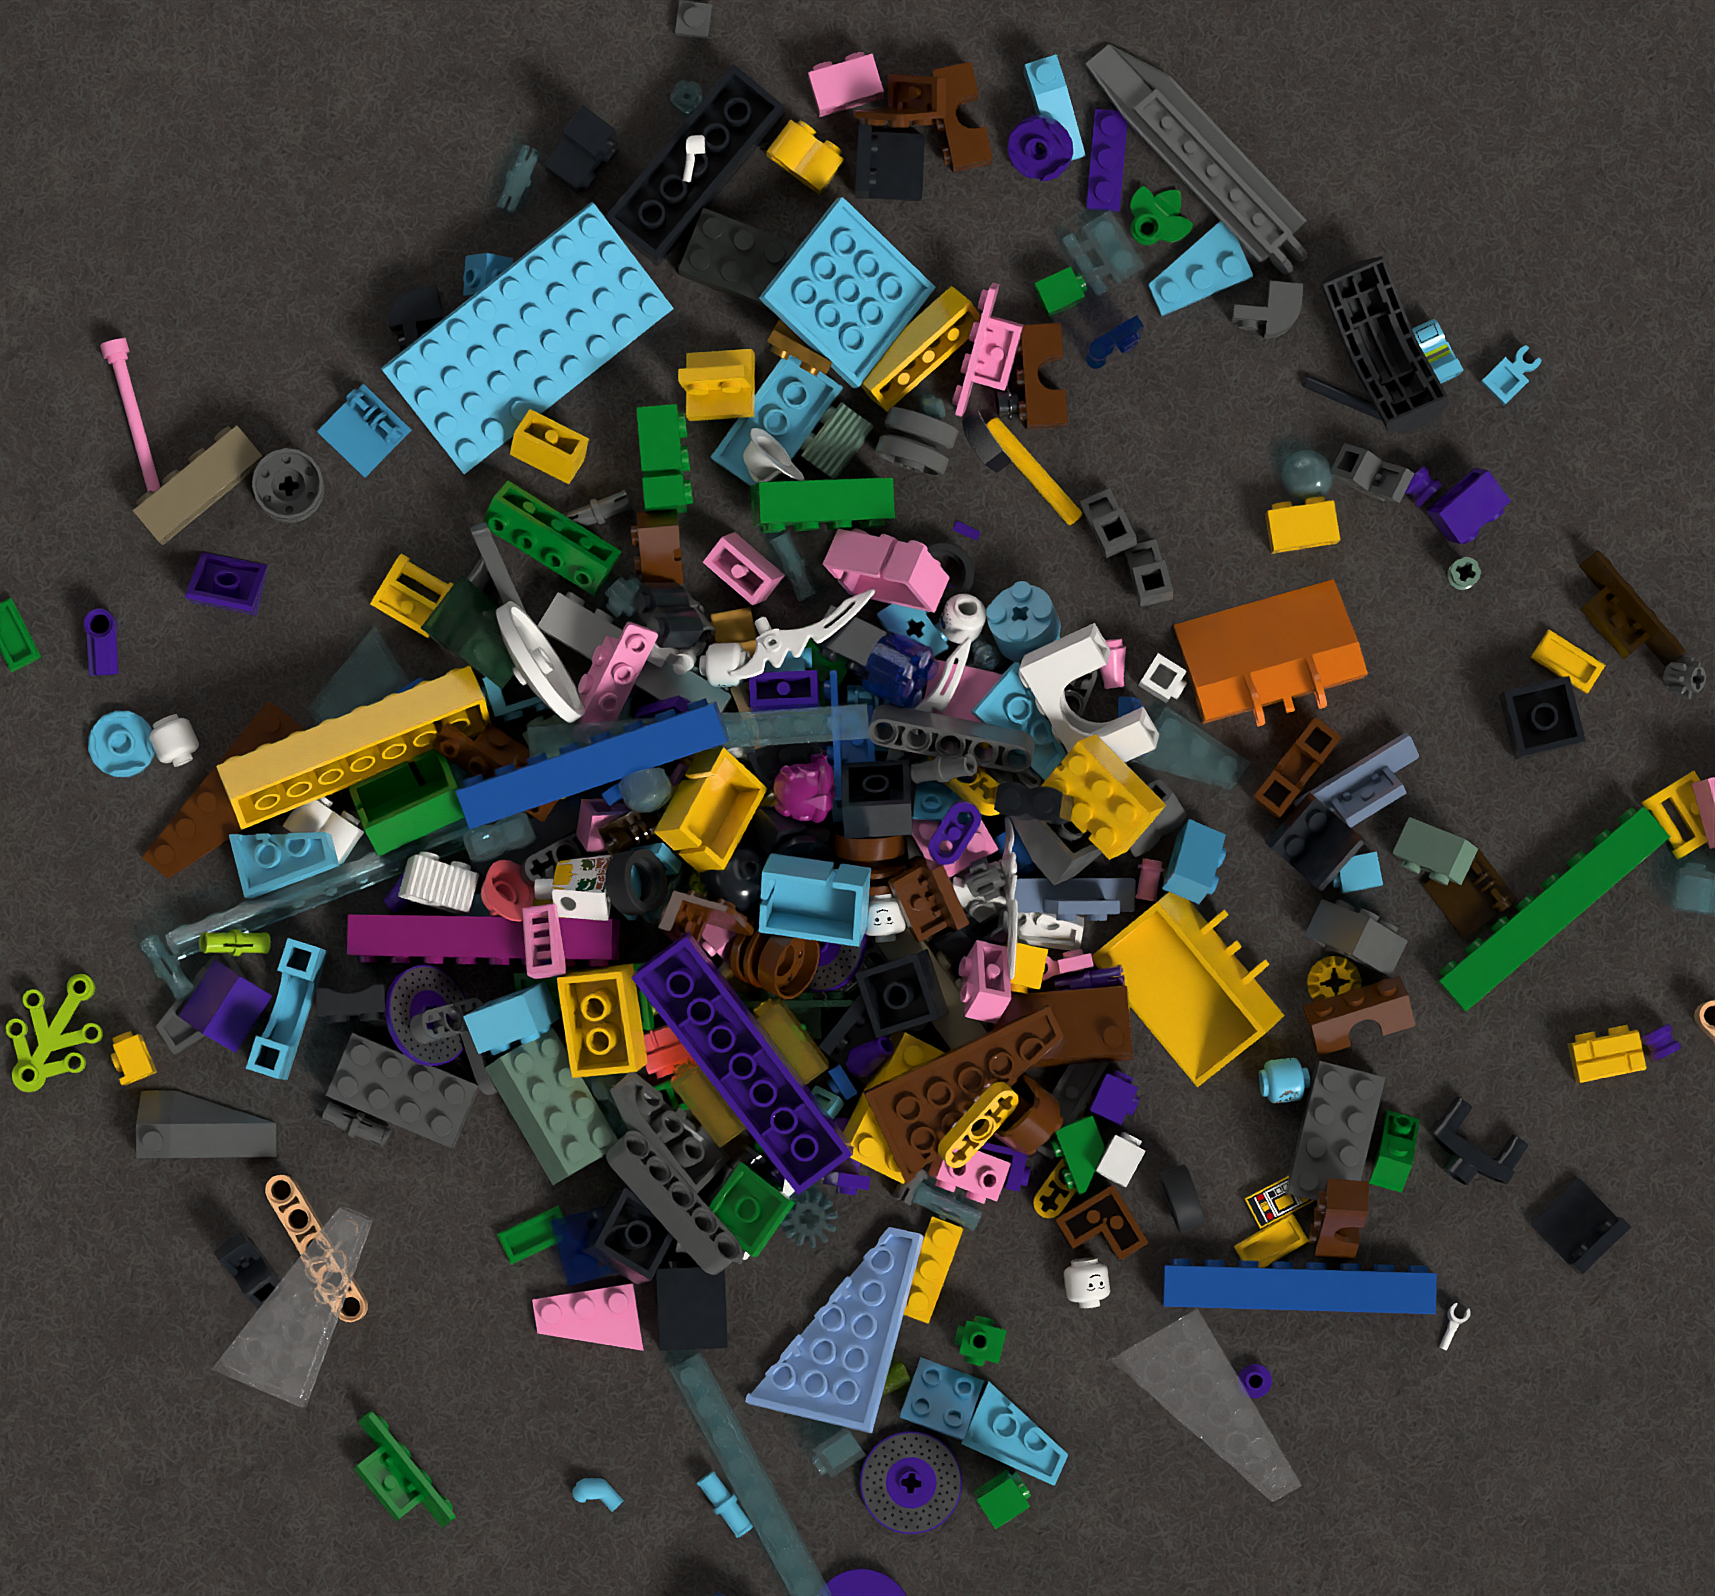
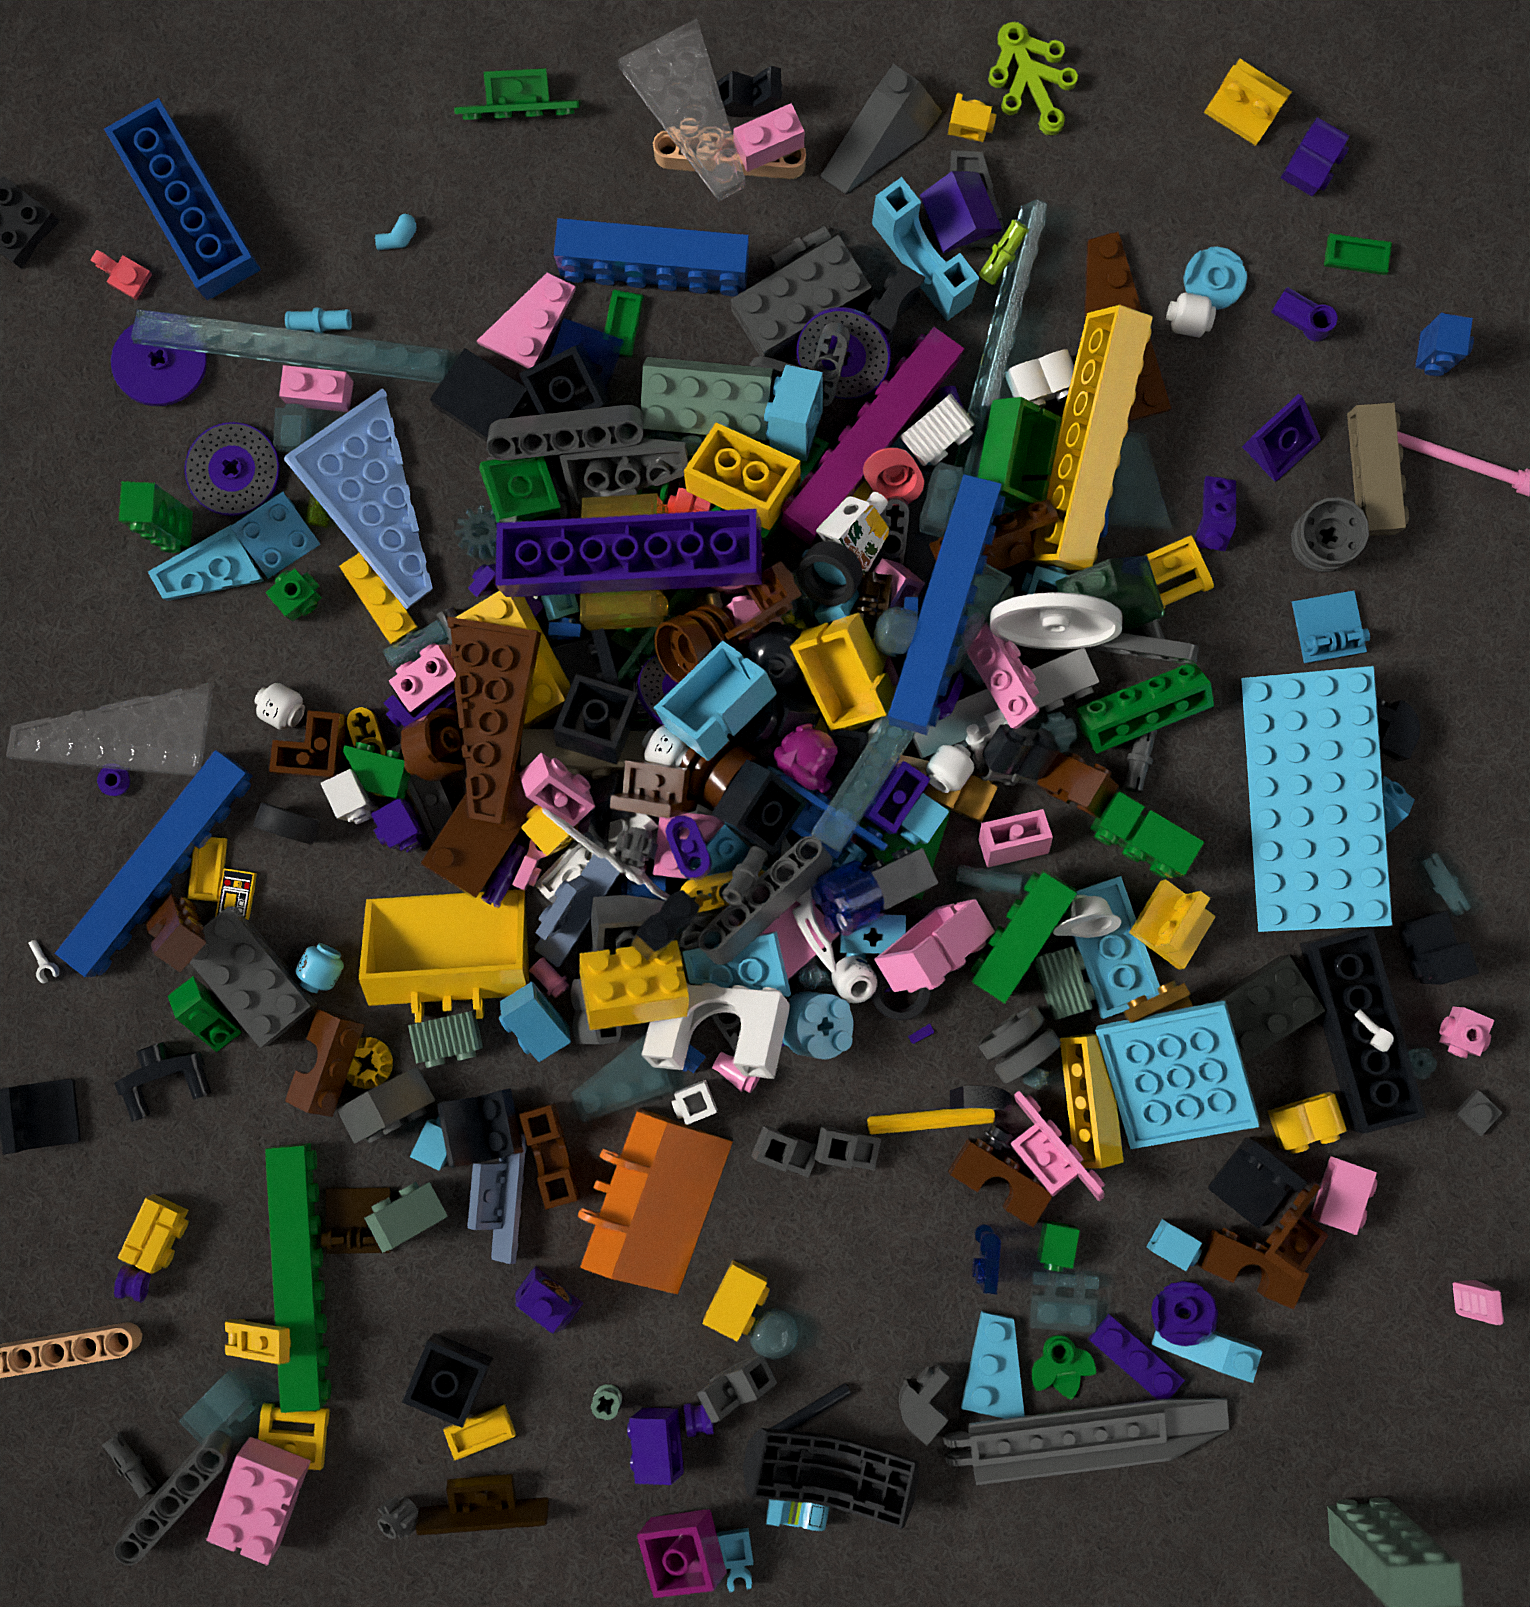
camera: 130 degrees right, 0 degrees up
(48, 503) = (1444, 344): none -> blue brick
(178, 981) = (1021, 190): clear light blue pin -> none
(279, 860) = (1042, 326): medium azure wing -> none
(284, 1216) = (769, 137): none -> bright pink brick
(332, 595) = (1218, 514): none -> dark purple bracket
(460, 1245) = (652, 256): none -> blue brick
(532, 955) = (841, 461): bright pink slope -> none
(549, 446) = (1218, 756): yellow brick -> none
(635, 89) = (1466, 1032): none -> bright pink brick
(775, 643) = (939, 816): white piece -> none
(788, 1457) = (316, 388): none -> bright pink brick
(868, 1057) = (568, 661): dark purple cone -> none
(979, 1109) = (446, 673): yellow beam -> none
(989, 194) = (1175, 1245): none -> medium azure brick
(1264, 929) = (446, 1037): none -> sand green brick
(1418, 684) = (546, 1301): none -> dark purple torso
(1538, 422) = (681, 1553): none -> magenta brick
(1627, 899) = (257, 1341): none -> yellow plate

